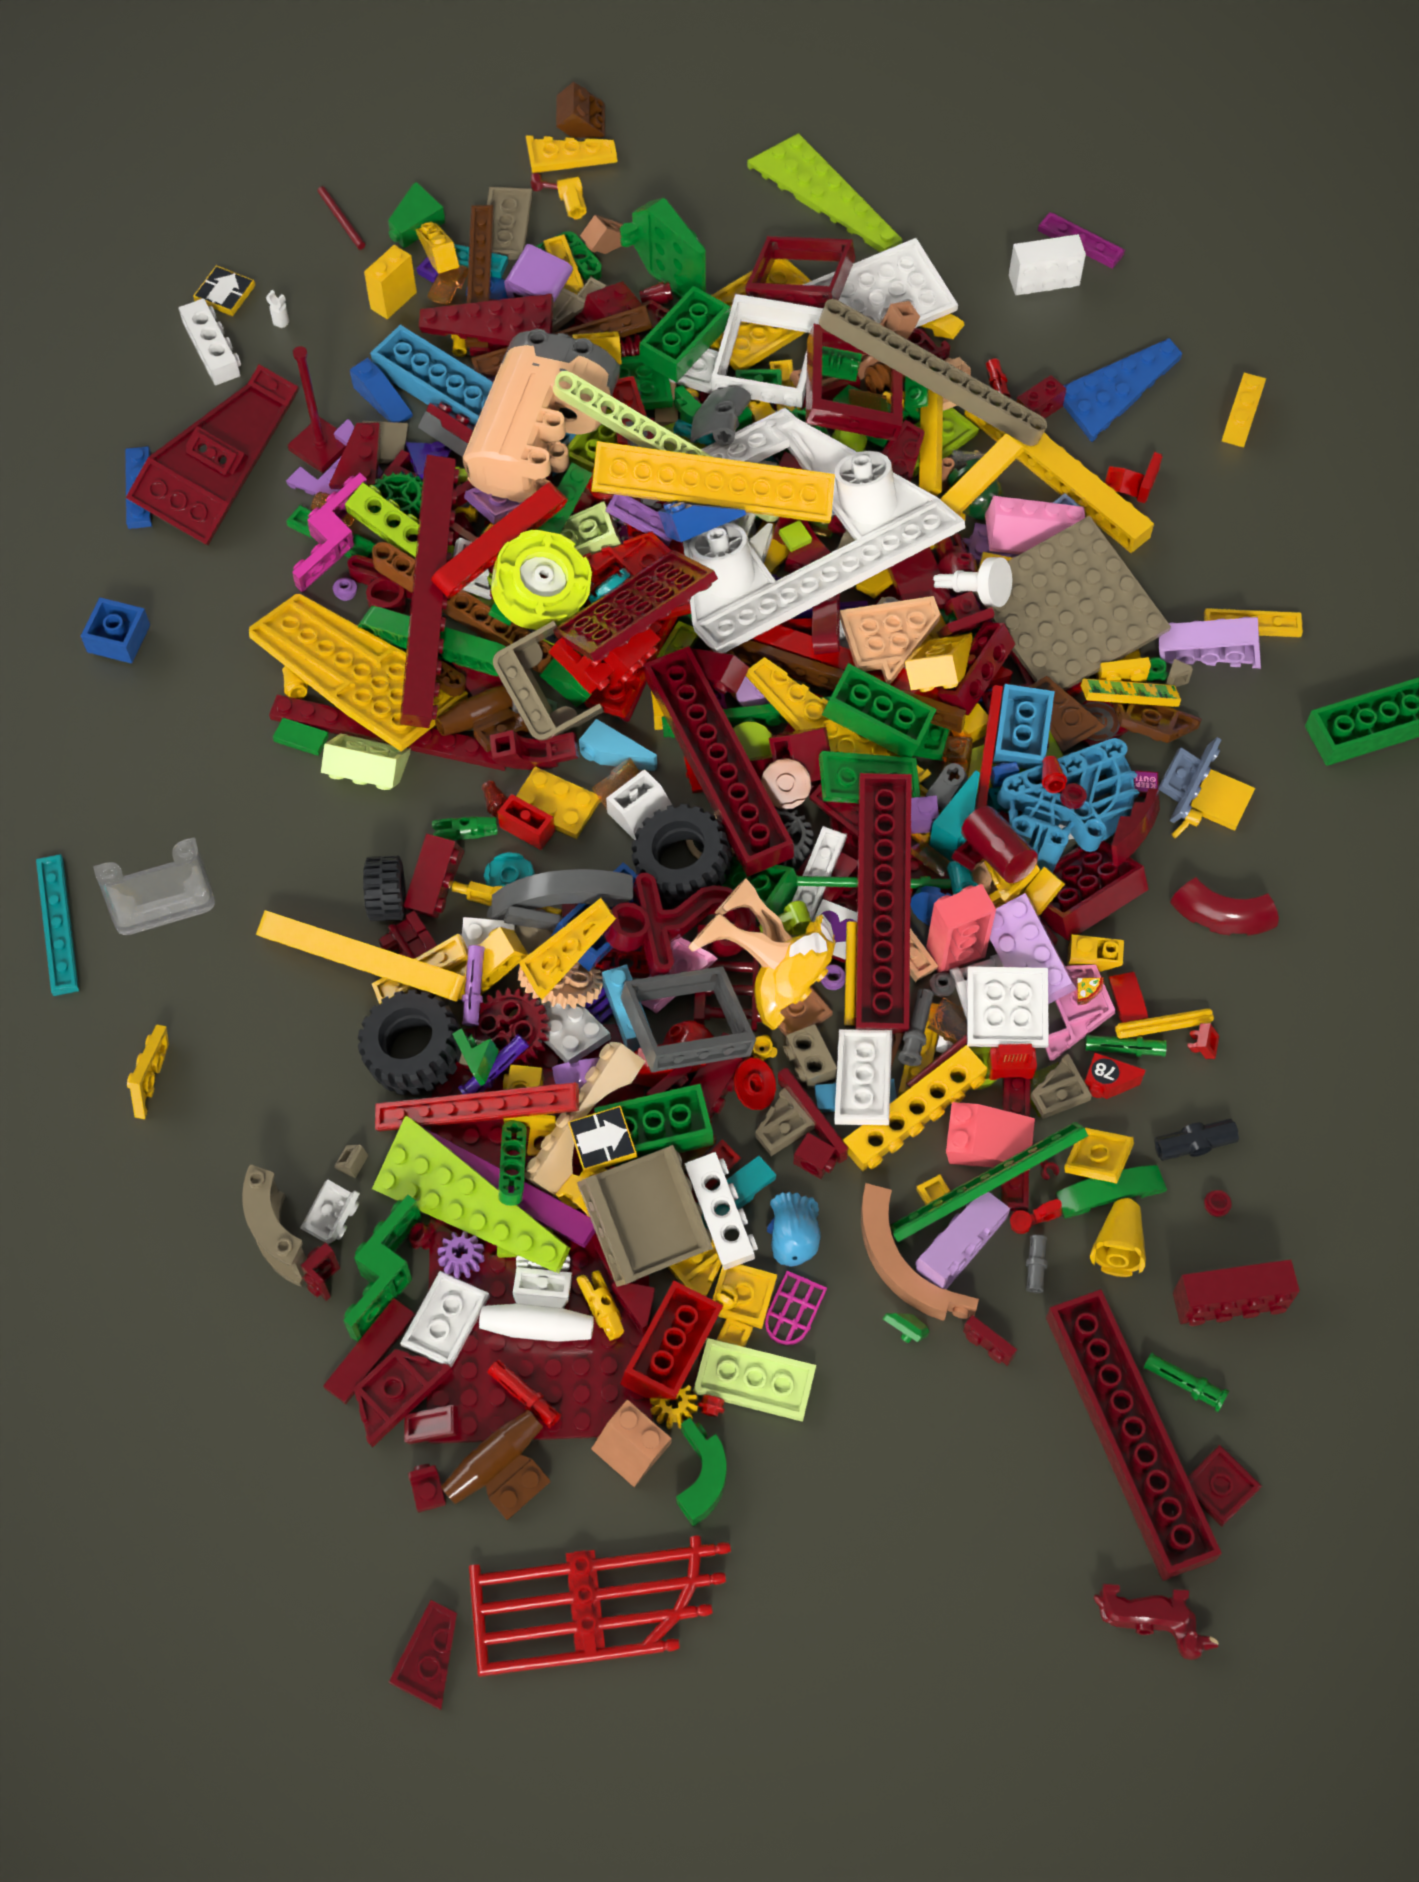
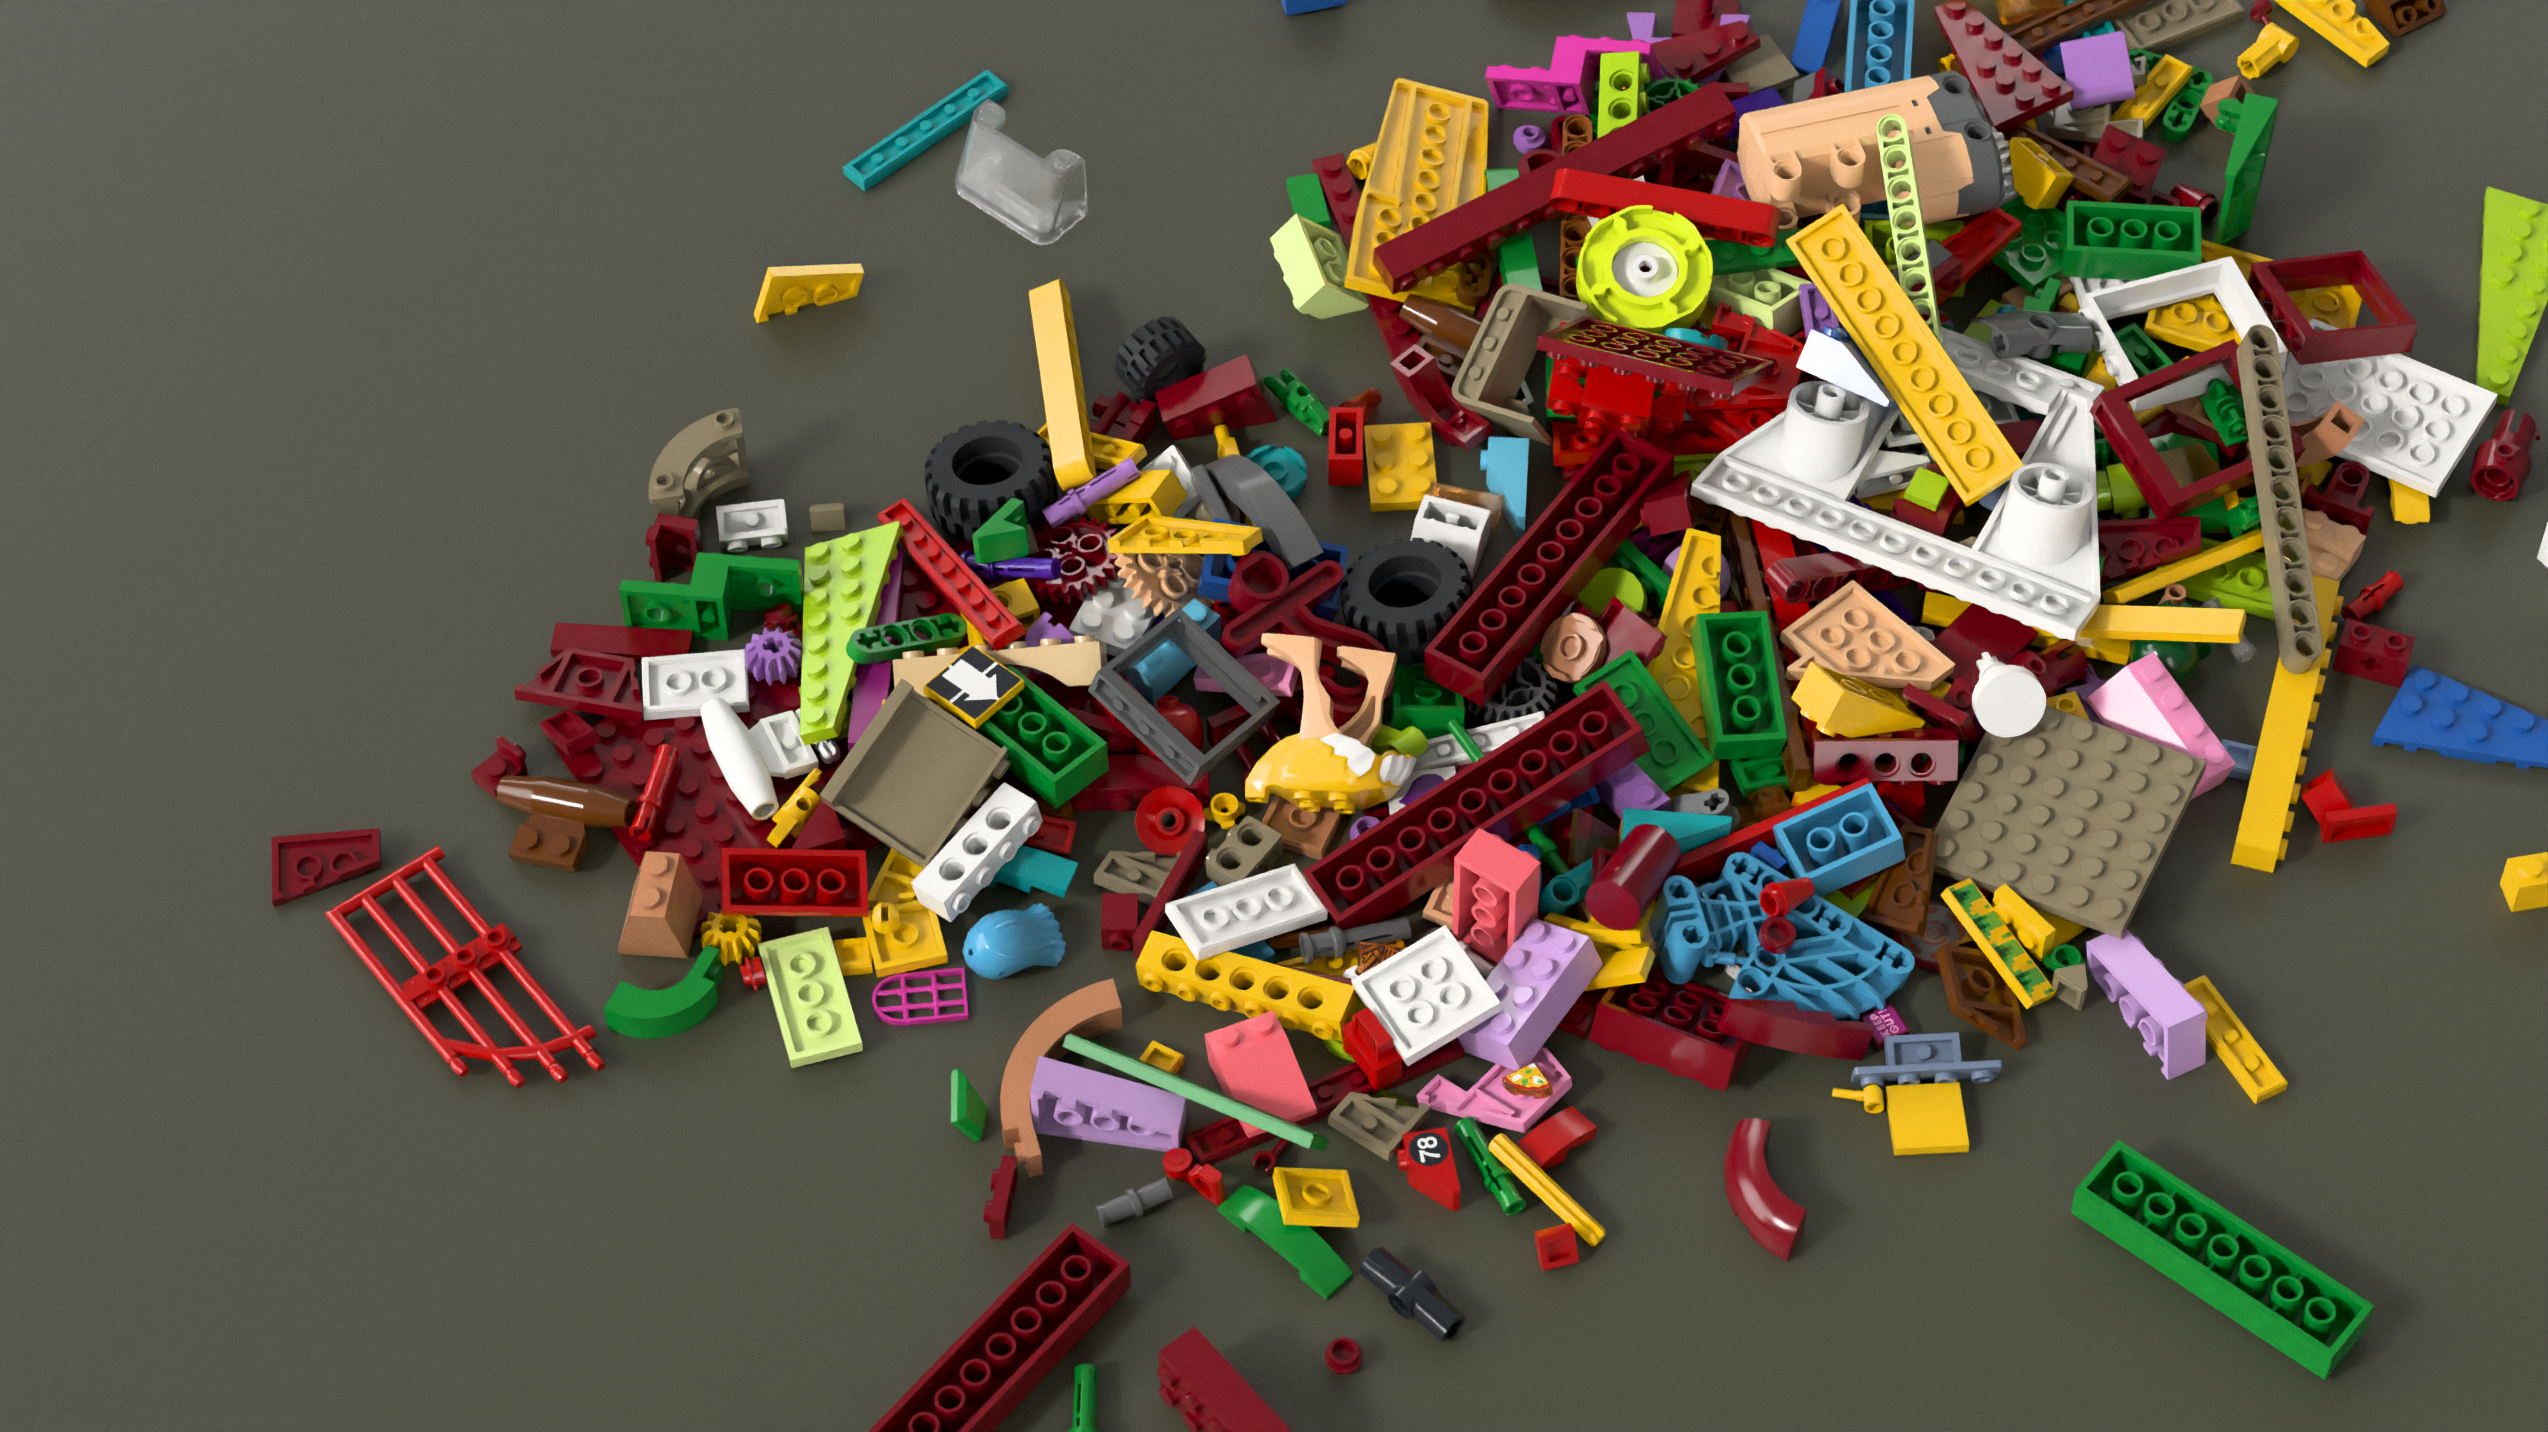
camera: 60 degrees right, 10 degrees down
(951, 267) = (2504, 459): none -> dark red piece
(1096, 951) = (1587, 1067): yellow slope -> none
(1121, 1241) = (1219, 1266): yellow cone -> none

